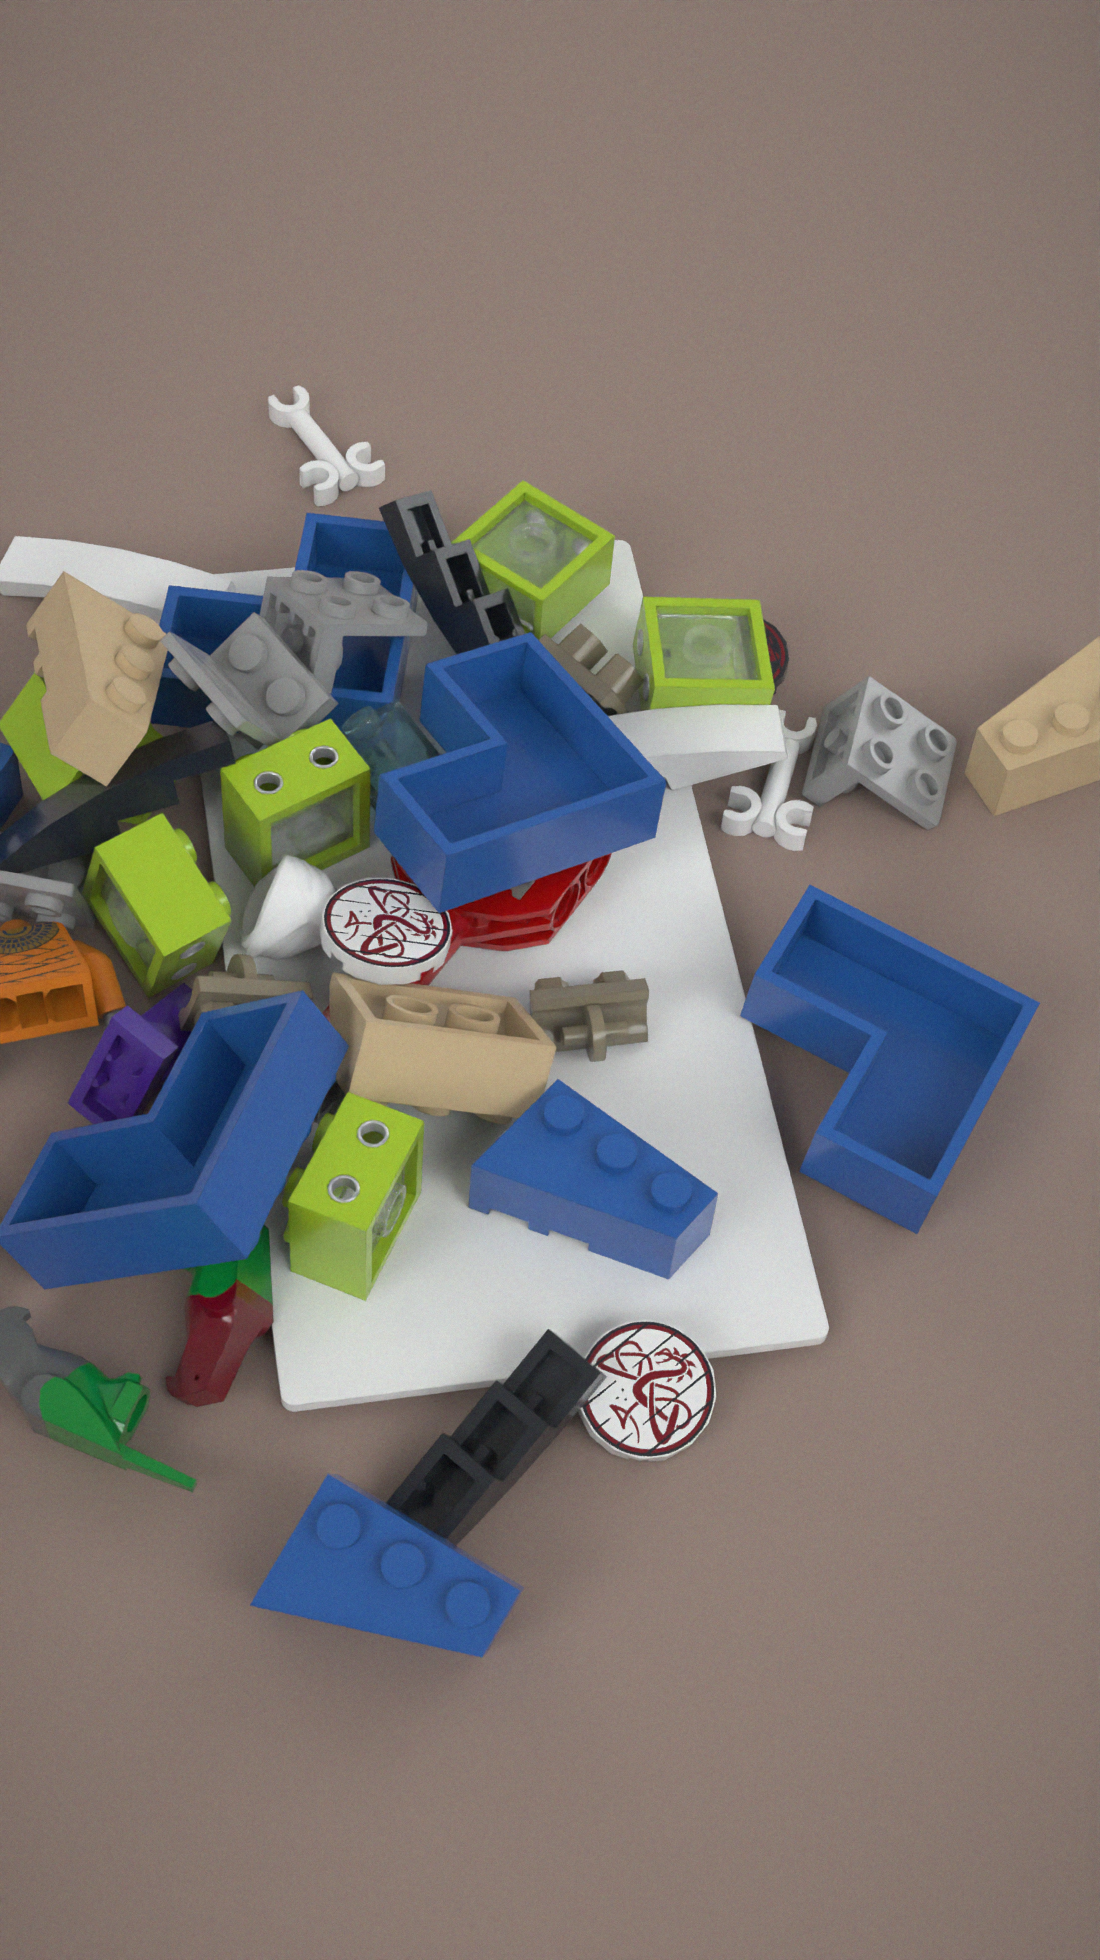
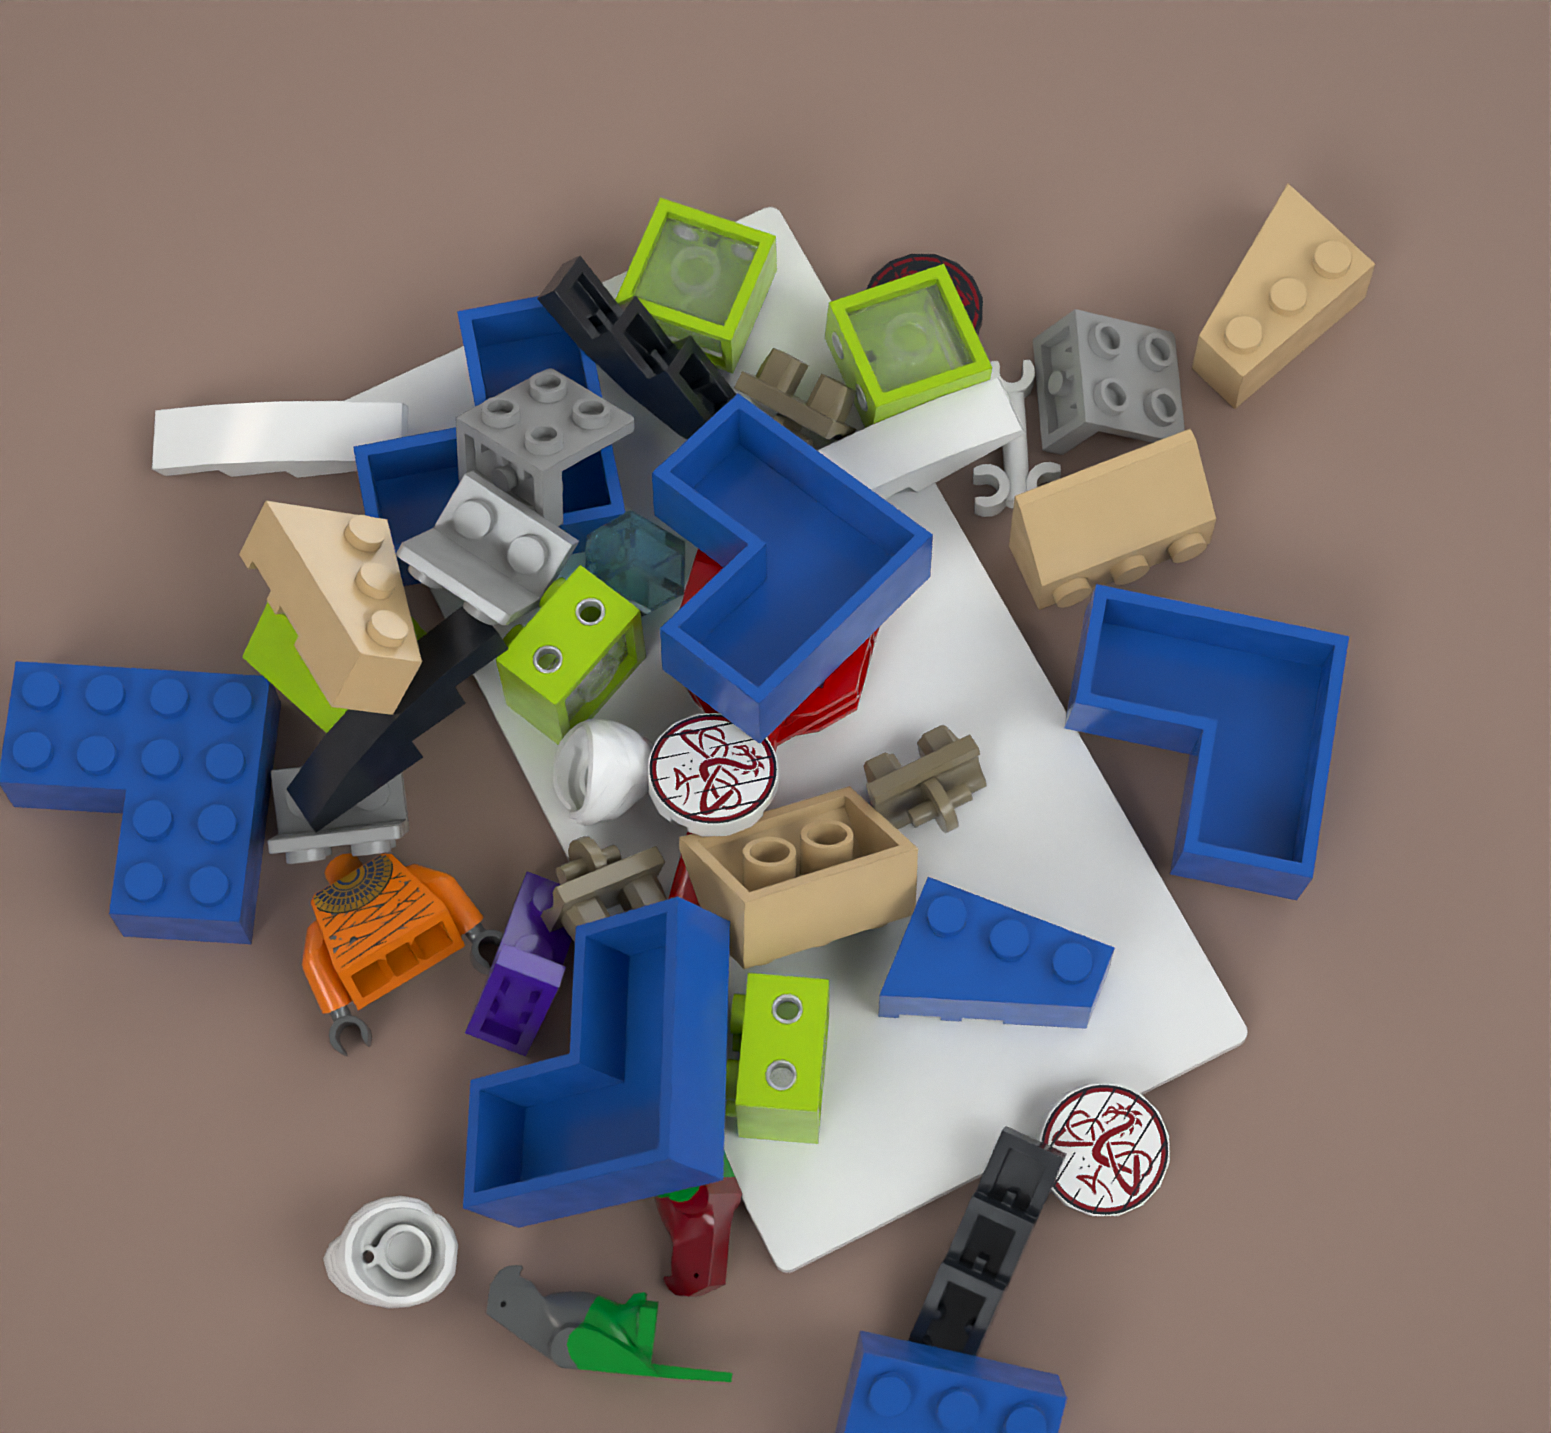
camera: 10 degrees left, 15 degrees up
(157, 903) = (479, 808): lime piece -> none
(331, 468) = (445, 212): white bar -> none
(855, 841) = (1112, 521): none -> tan slope

